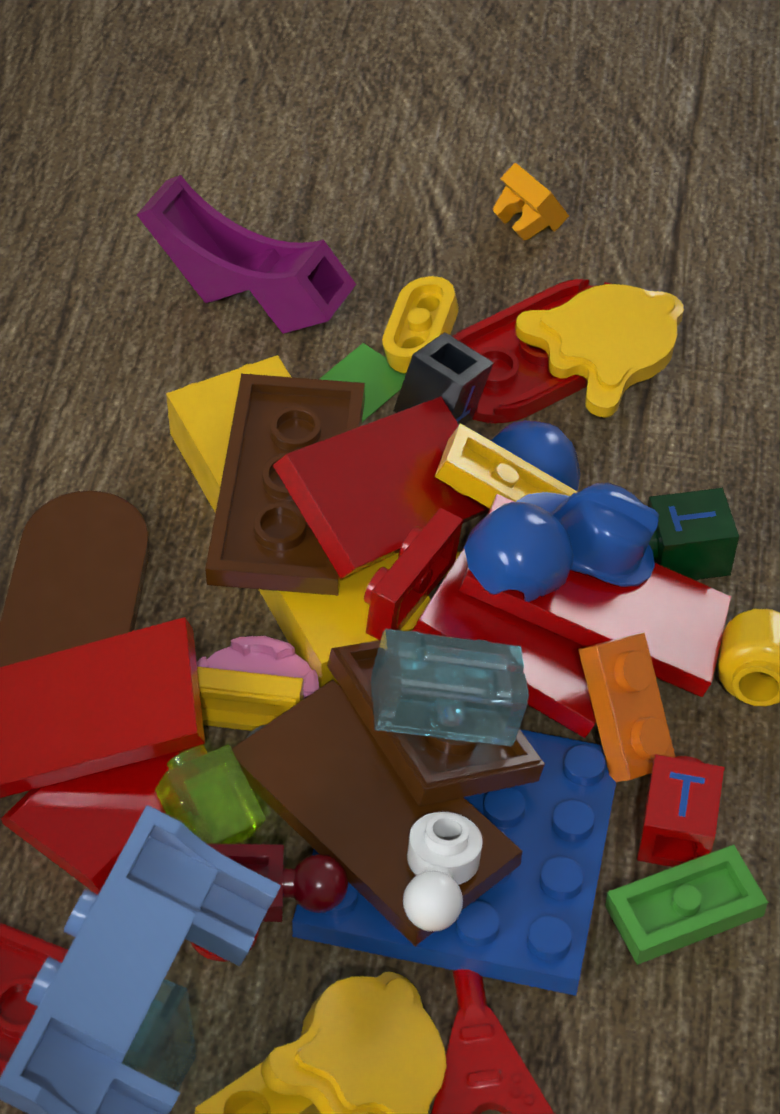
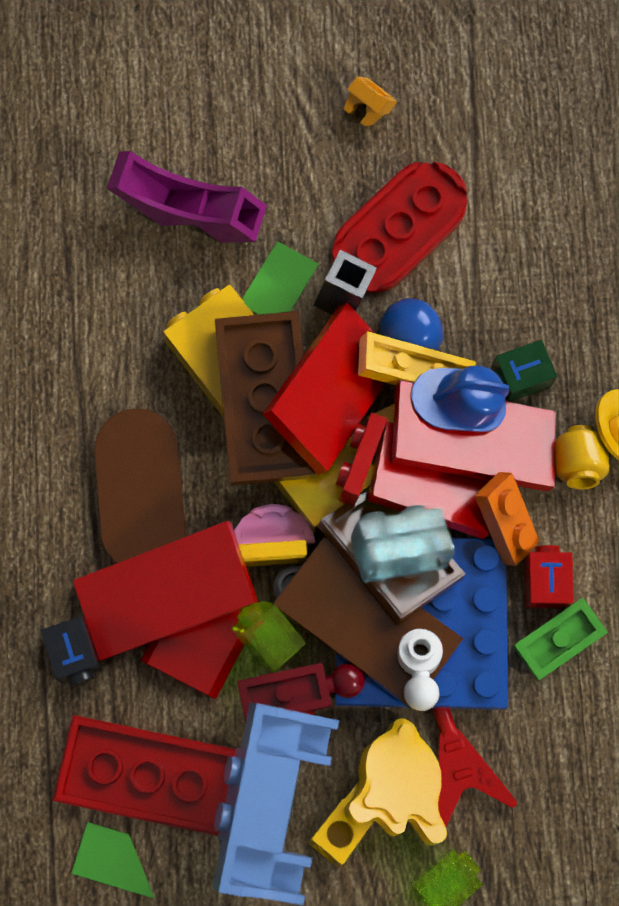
camera: 15 degrees left, 25 degrees up
(419, 316) = (314, 228): yellow plate -> none
(520, 551) = (426, 434): blue hair -> none
(607, 336) = (446, 216): yellow tile -> none

